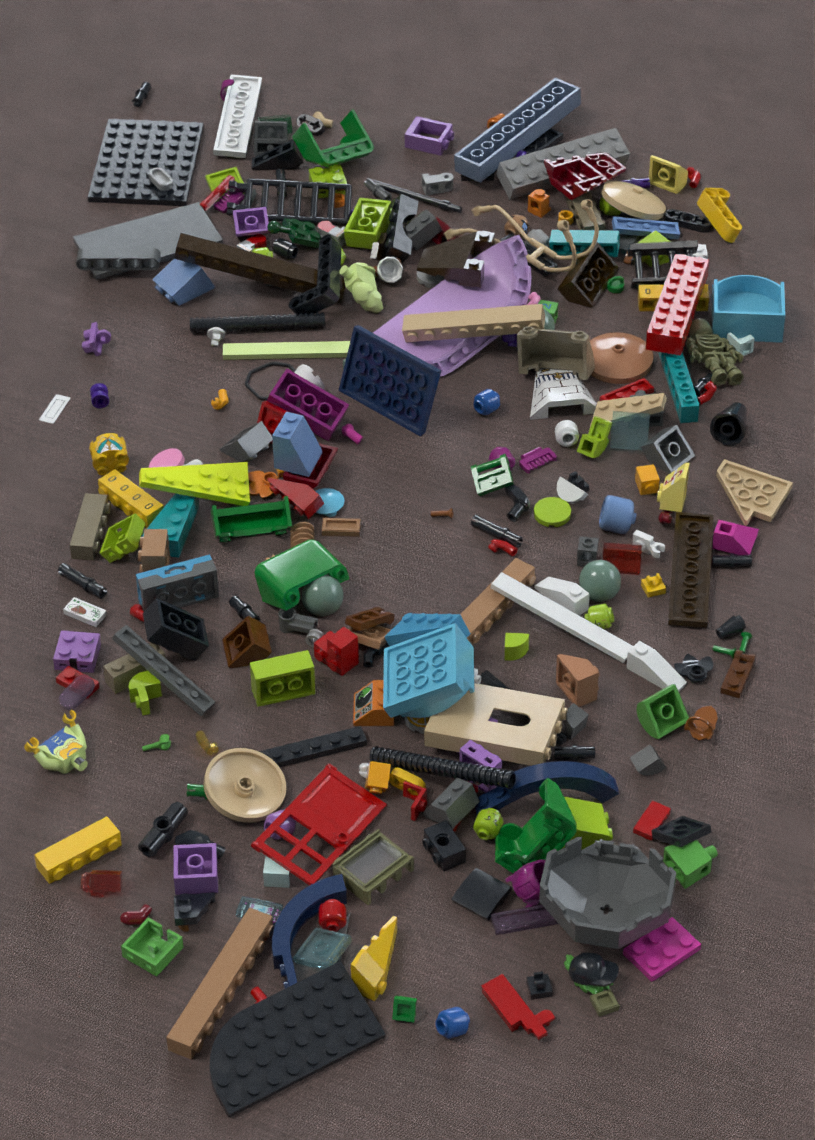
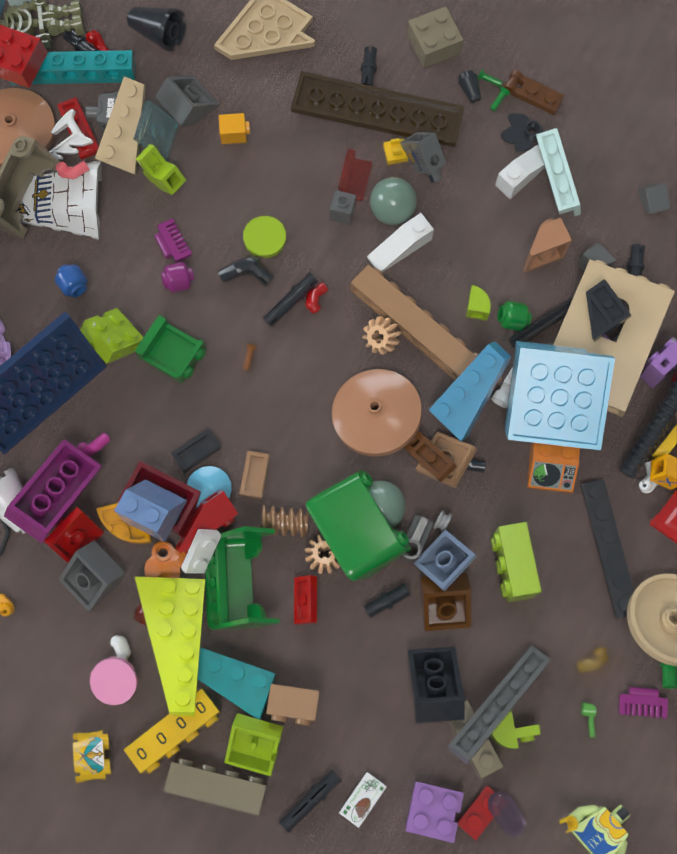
camera: 85 degrees left, 30 degrees up
(137, 612) = (379, 729): red arm -> none
(173, 779) = (644, 697): none -> magenta piece
(179, 583) = (348, 678): dark grey piece -> none
(248, 563) = (305, 600): none -> red plate
(270, 493) = (201, 551): none -> white plate
(280, 634) = (445, 560): none -> sand blue slope
(338, 650) = (476, 493): red brick -> none
(356, 492) = (196, 450): none -> black tile
(404, 589) = (379, 430): none -> nougat dish
(439, 465) = (170, 350): none -> green panel
(442, 426) = (111, 335): none -> lime piece
(472, 583) = (379, 342): none -> light nougat gear
(494, 479) = (211, 290): plate -> none
(508, 669) = (514, 316): none -> green head
(515, 705) = (604, 309): none -> black wing
(561, 617) = (443, 250): white tile -> none
(566, 433) = (141, 200): white head -> none
(569, 491) = (240, 212): white tile -> none
(577, 383) = (71, 172): none -> coral arm
(579, 482) = (225, 205): black tile -> none
(600, 615) = (443, 211): lime head -> none
(613, 389) = (76, 139): none -> white piece
(617, 514) = (290, 167): medium blue head -> none
(645, 687) = (558, 172): none -> light aqua fence
(647, 594) = (425, 154): none -> dark grey torso
(648, 545) = (334, 148): white plate -> none
(662, 712) = (593, 171): bright green brick -> none
(665, 517) = (291, 123): dark red arm -> none
(673, 490) = (264, 98): light yellow slope -> none
(702, 723) = (605, 136): dark orange piece -> none
(734, 538) = (335, 58): dark pink slope -> none
(773, 597) = (434, 37): none -> dark tan brick

